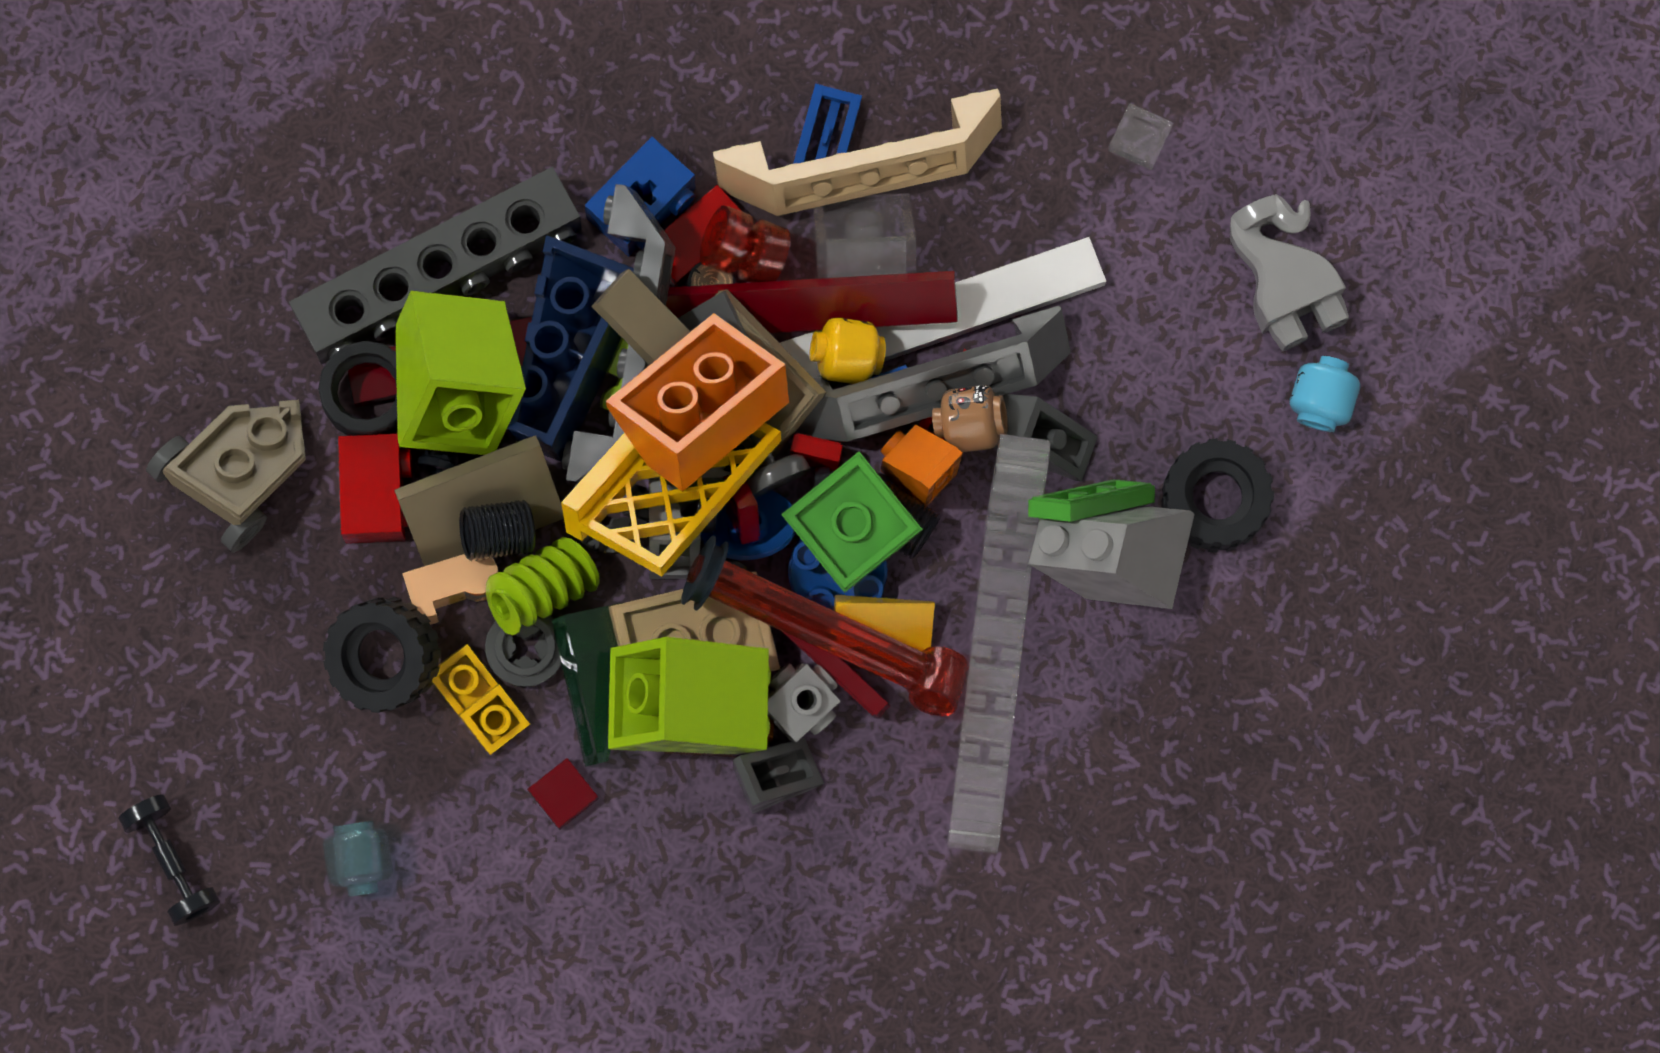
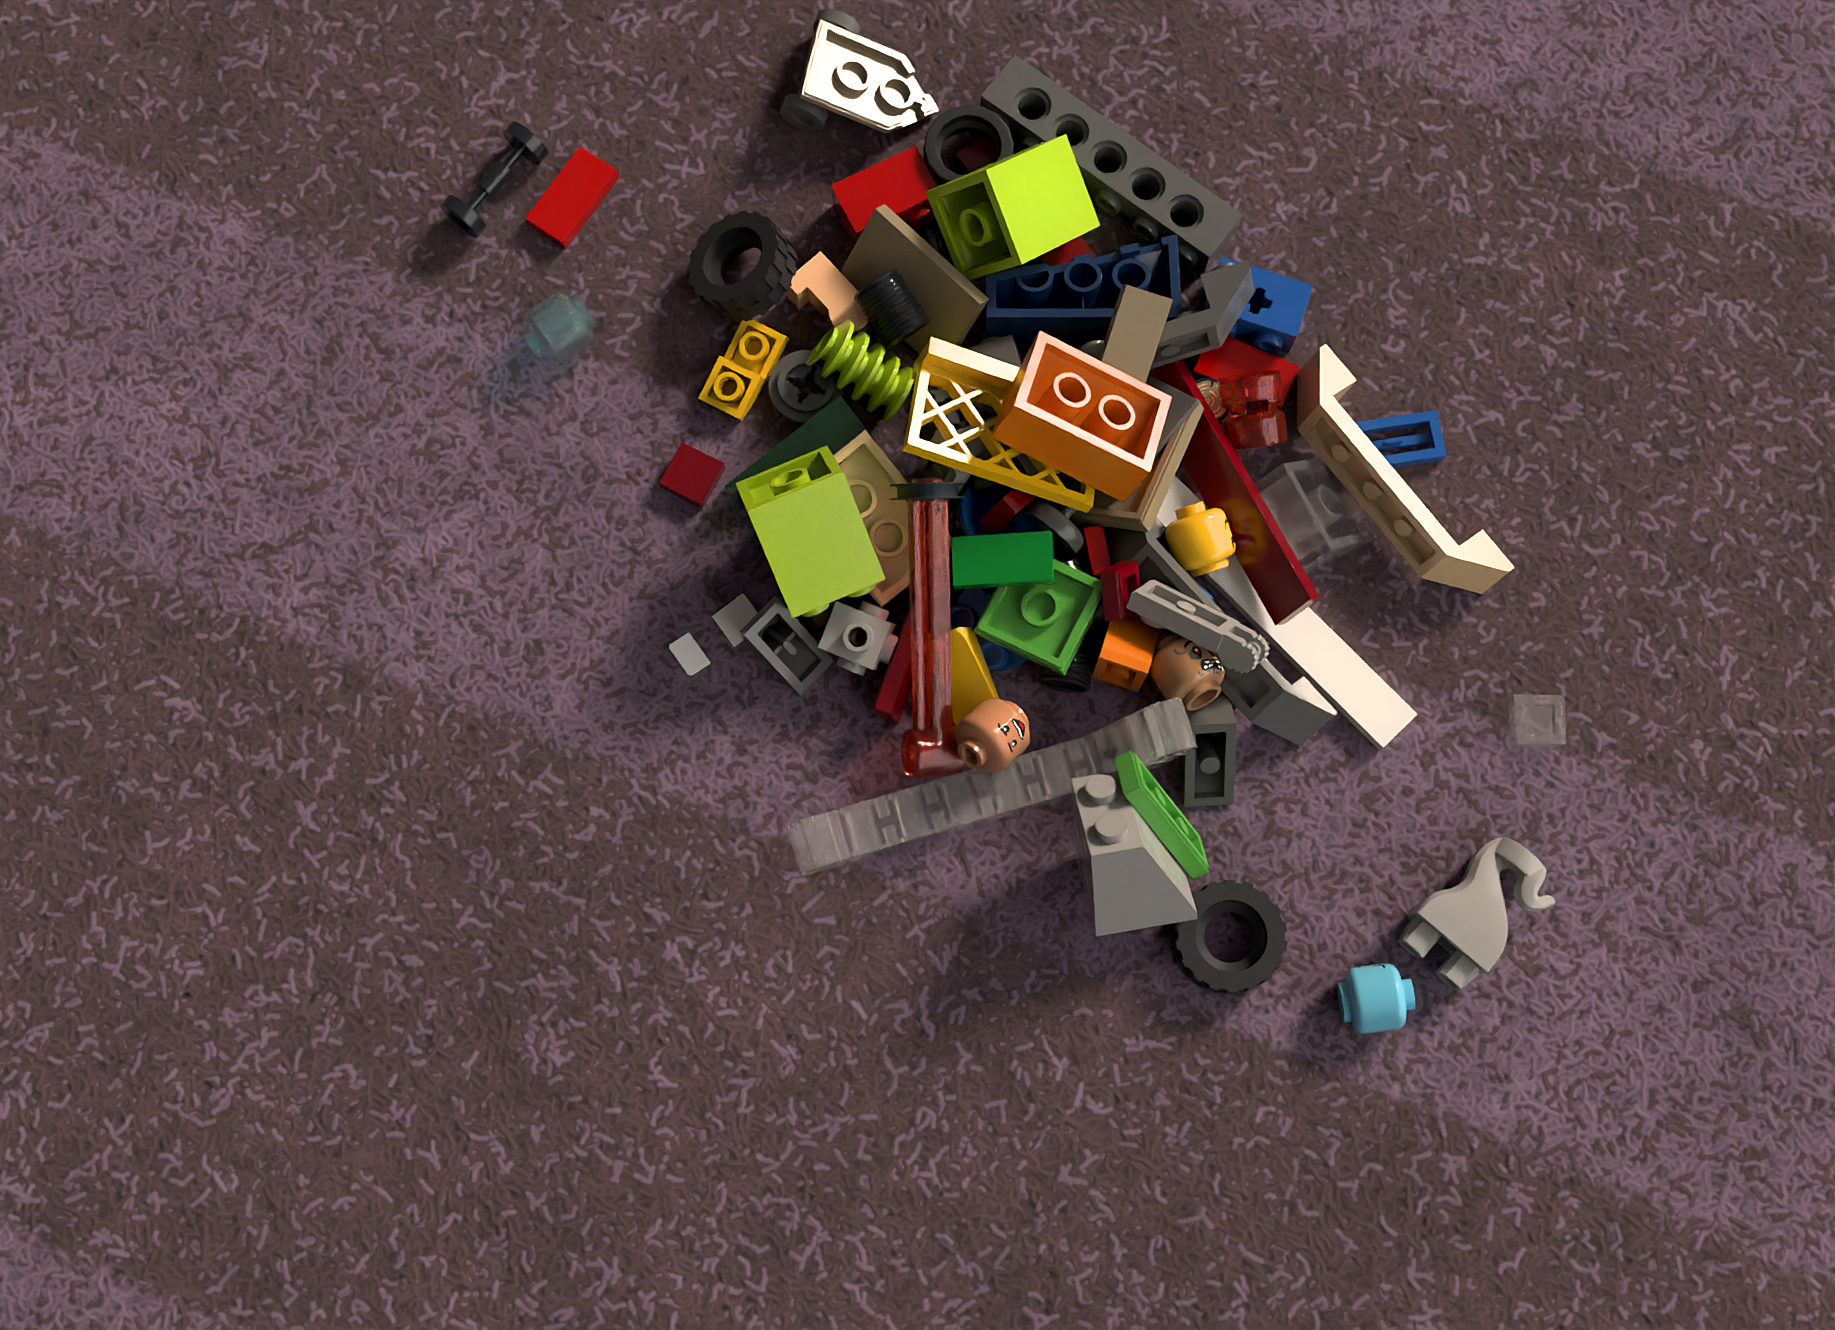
camera: 75 degrees right, 0 degrees up
(220, 792) = (572, 197): none -> red tile
(726, 812) = (730, 620): none -> white sticker
(794, 535) = (1003, 560): none -> green tile
(869, 442) = (1117, 585): none -> dark red tile
(936, 386) = (1170, 609): none -> light grey hinge
(951, 618) = (992, 735): none -> nougat head

